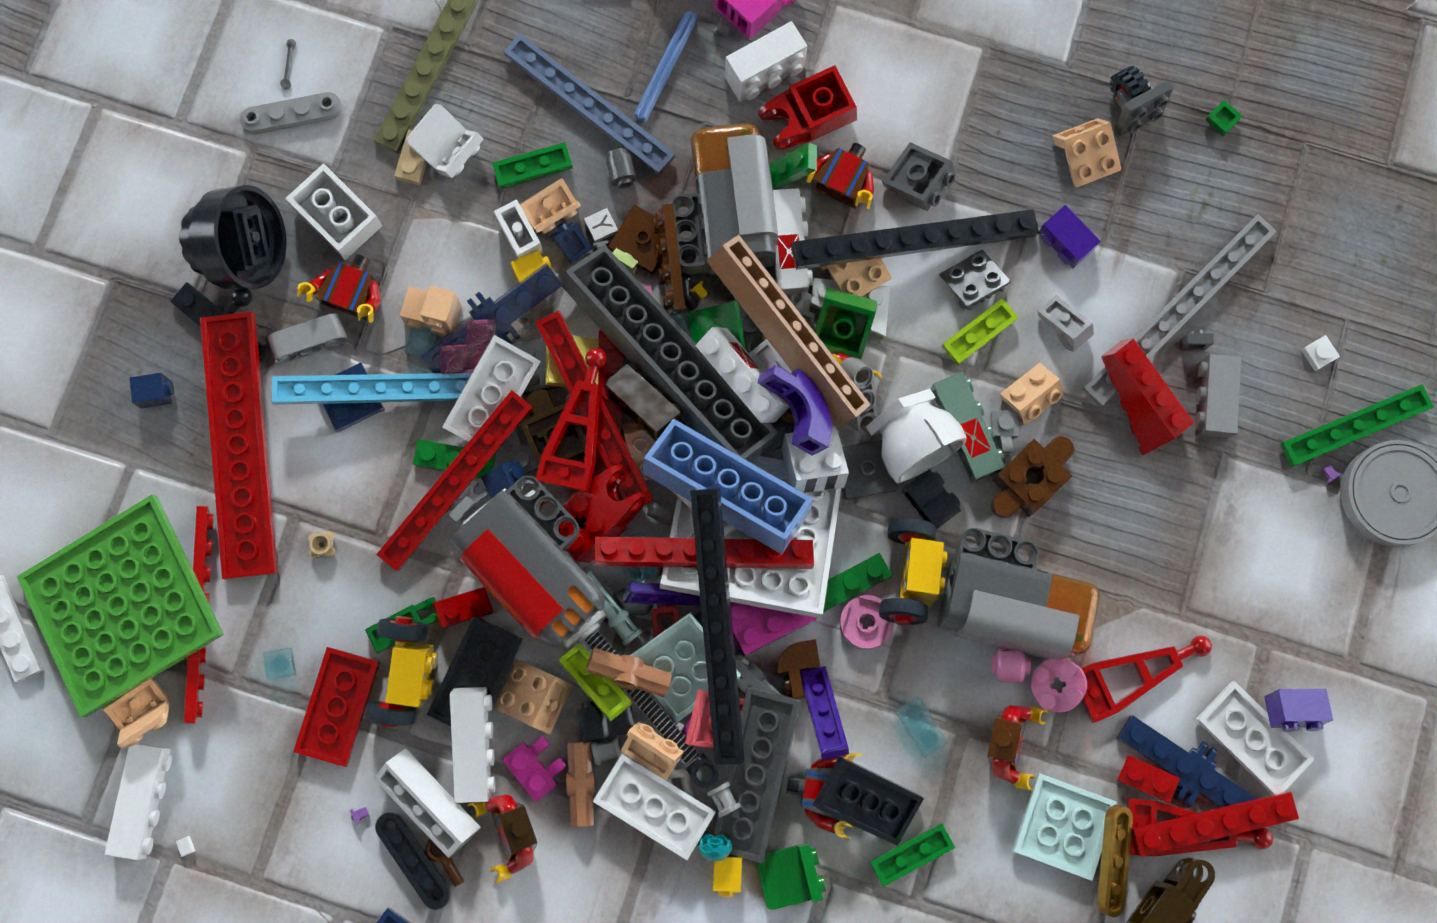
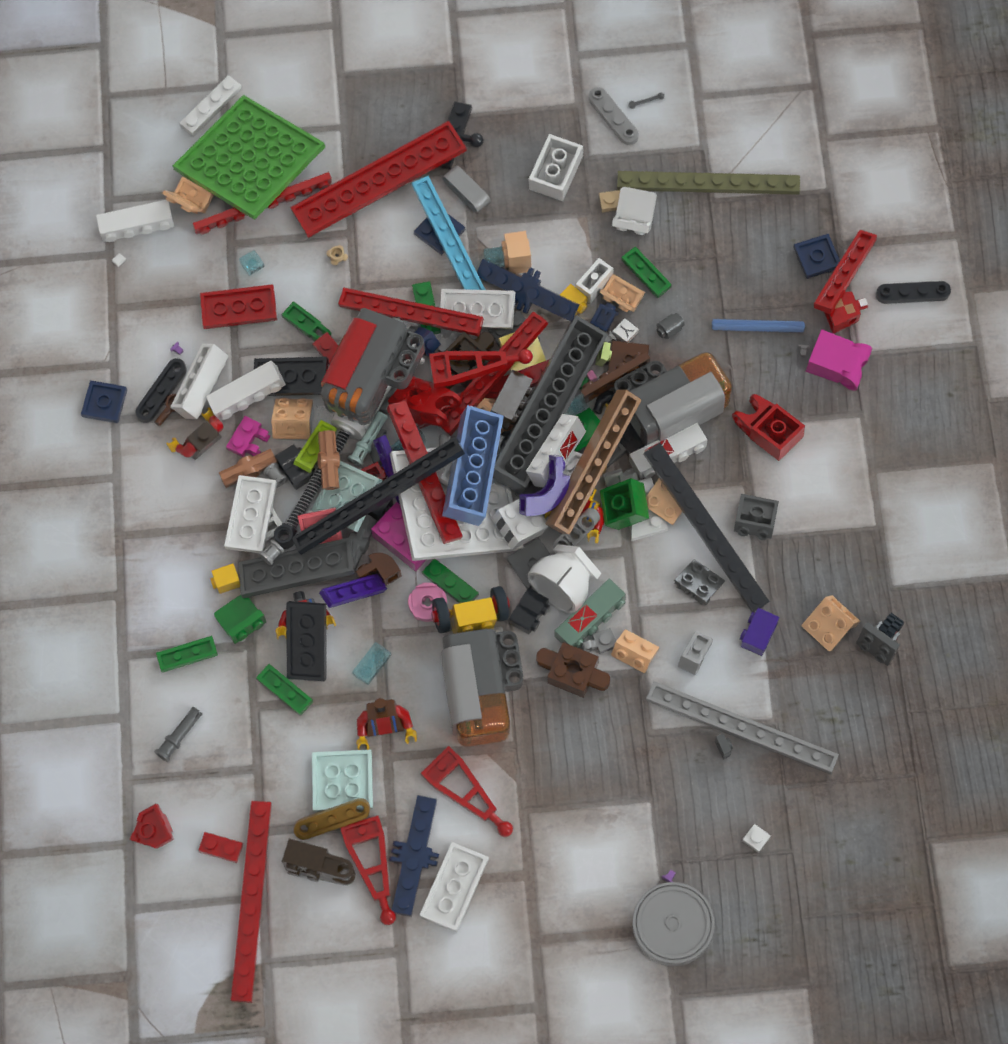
camera: 75 degrees right, 10 degrees down
(151, 390) = (392, 116): dark blue brick -> none
(235, 238) = (508, 117): black piece -> none
(345, 289) = (508, 196): torso -> none
(408, 675) = (274, 334): brick -> none
(466, 357) = (492, 281): clear pink plate -> none
(589, 104) = (706, 289): sand blue plate -> none
(652, 750) = (285, 497): light nougat bracket -> none
(714, 848) = (239, 560): teal plate -> none
(765, 62) = (787, 383): white brick -> none
(793, 166) = (716, 425): green plate -> none
(844, 176) = (731, 464): torso -> none
(980, 331) = (663, 599): lime plate -> none
(1010, 665) = (436, 704): bright pink head -> none
(1066, 671) = (435, 730): bright pink plate -> none
(1145, 396) = (660, 726): red wedge -> none
(1148, 779) = (396, 824): red plate -> none
(1214, 823) = (383, 876): red plate -> none
(1218, 396) = (689, 775): light grey brick -> none
(1223, 117) = (902, 706): green plate -> none
(1298, 709) = (486, 905): brick -> none
(1356, 425) = (712, 881): green plate -> none

